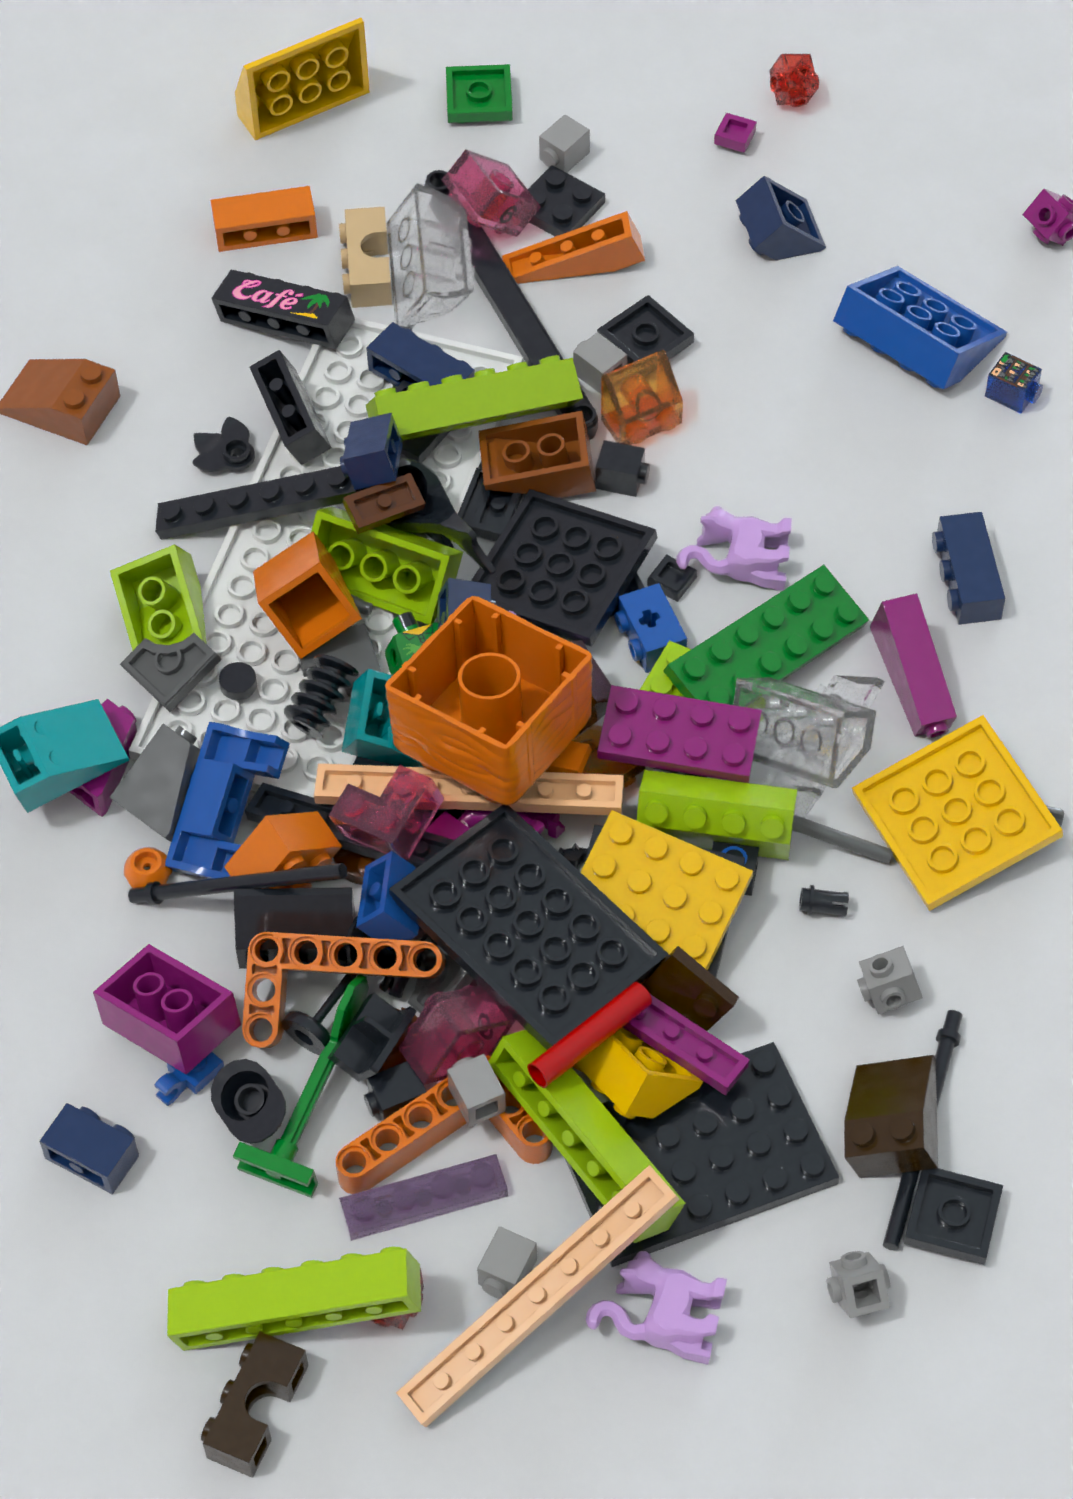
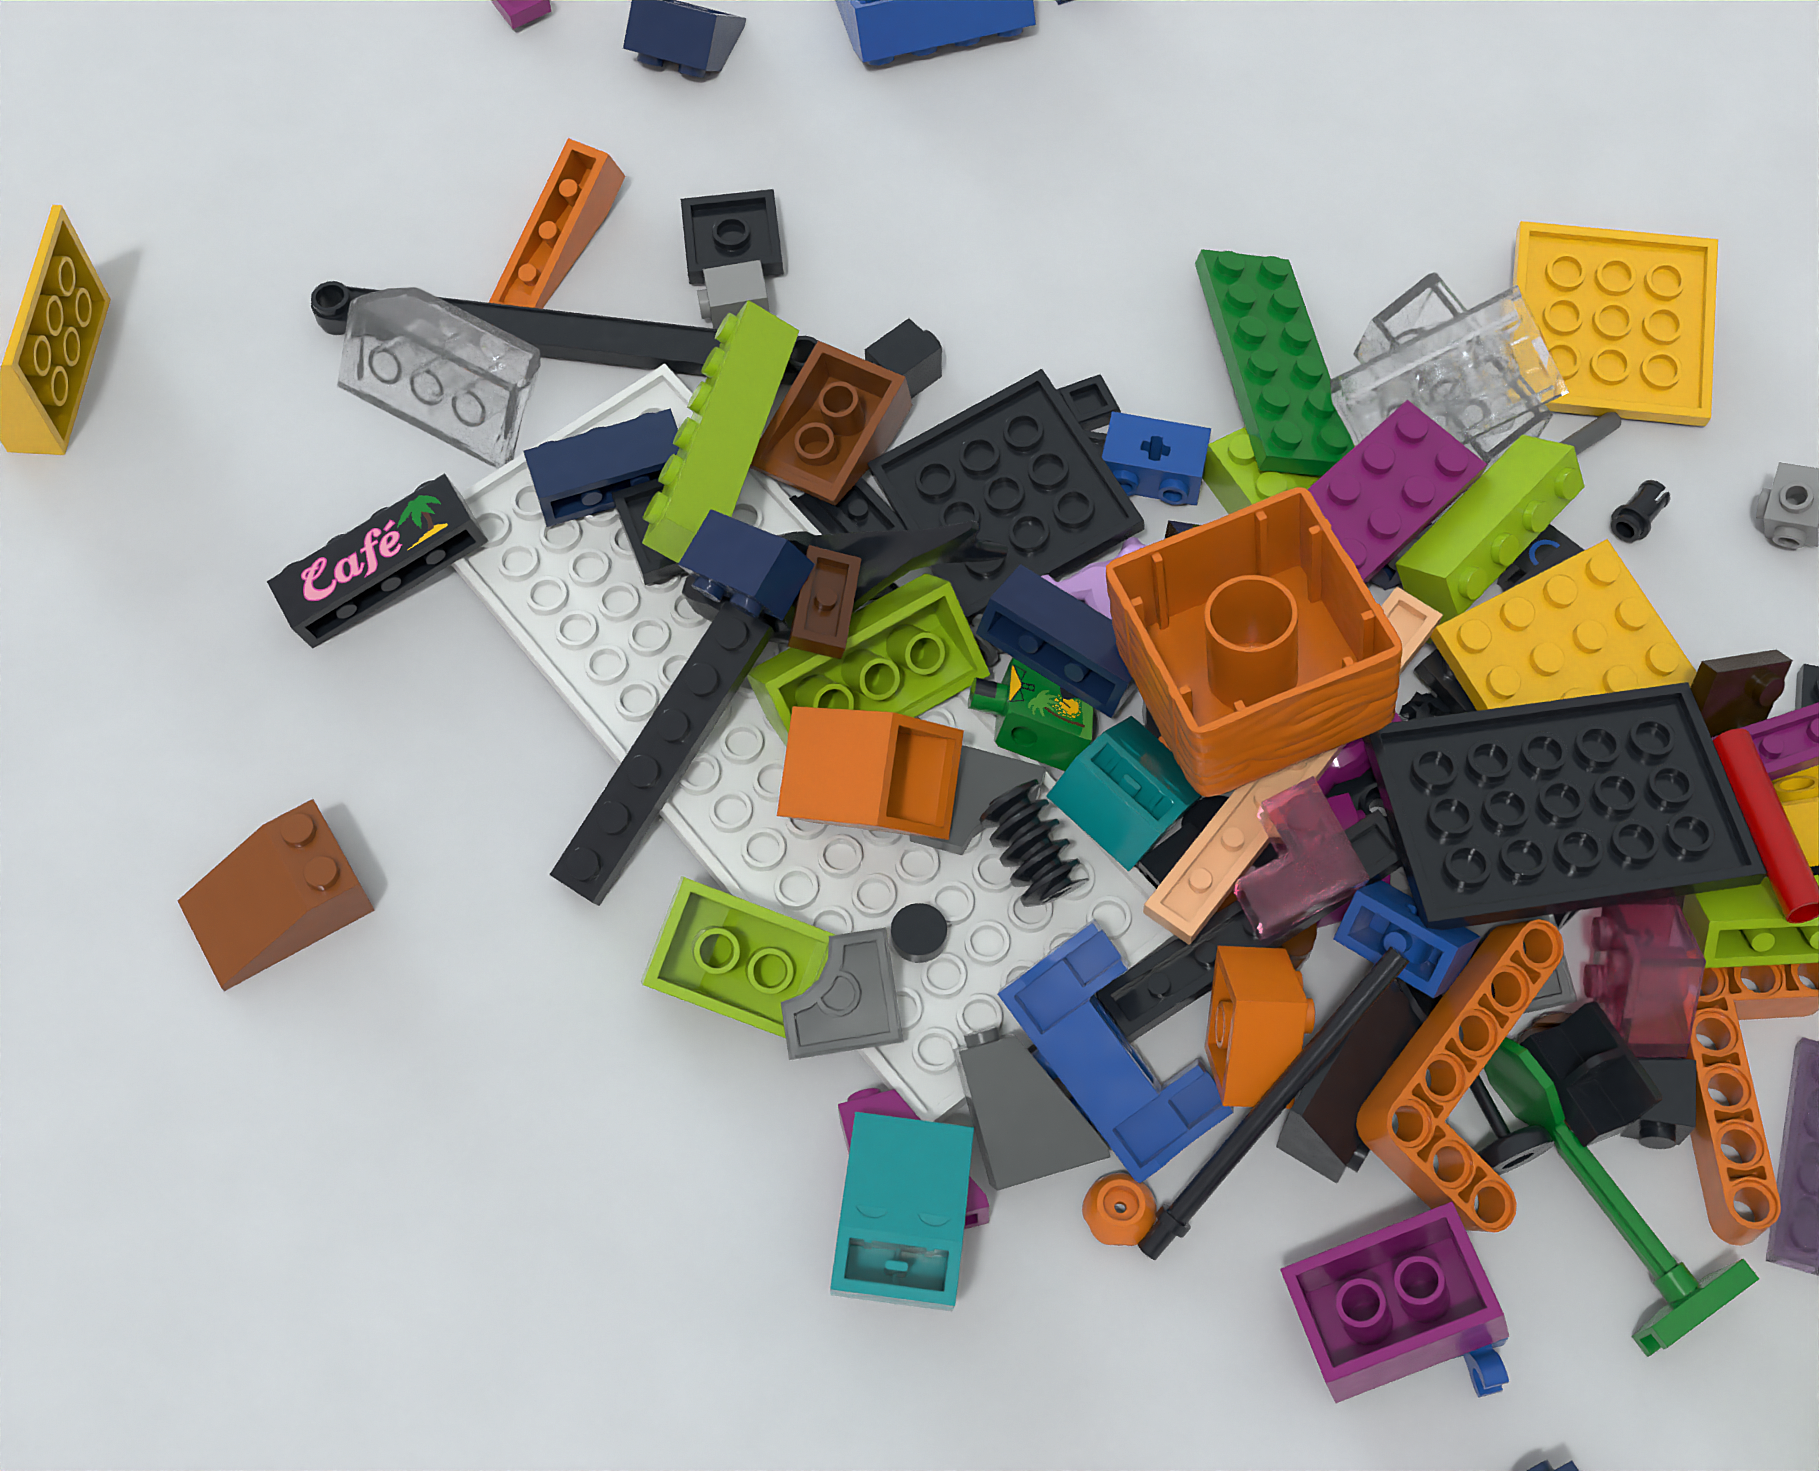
camera: 55 degrees left, 5 degrees up
(224, 450) = (516, 751): black plate -> none
(248, 1101) = (1594, 1281): black piece -> none
(264, 218) = (207, 508): orange brick -> none
(290, 407) = (553, 631): black brick -> none
(368, 276) = (334, 420): tan arch -> none
(476, 1089) = (1747, 999): light grey brick -> none
(479, 93) = (230, 192): green plate -> none
(490, 193) = (407, 254): clear pink brick -> none
(563, 201) = (462, 211): black plate -> none
(564, 144) = (388, 154): light grey brick -> none
(641, 399) = (837, 285): clear orange slope -> none
(747, 552) = (1111, 309): lavender animal -> none
(913, 665) = (1385, 247): magenta slope -> none
(969, 568) = (1289, 135): dark blue brick -> none

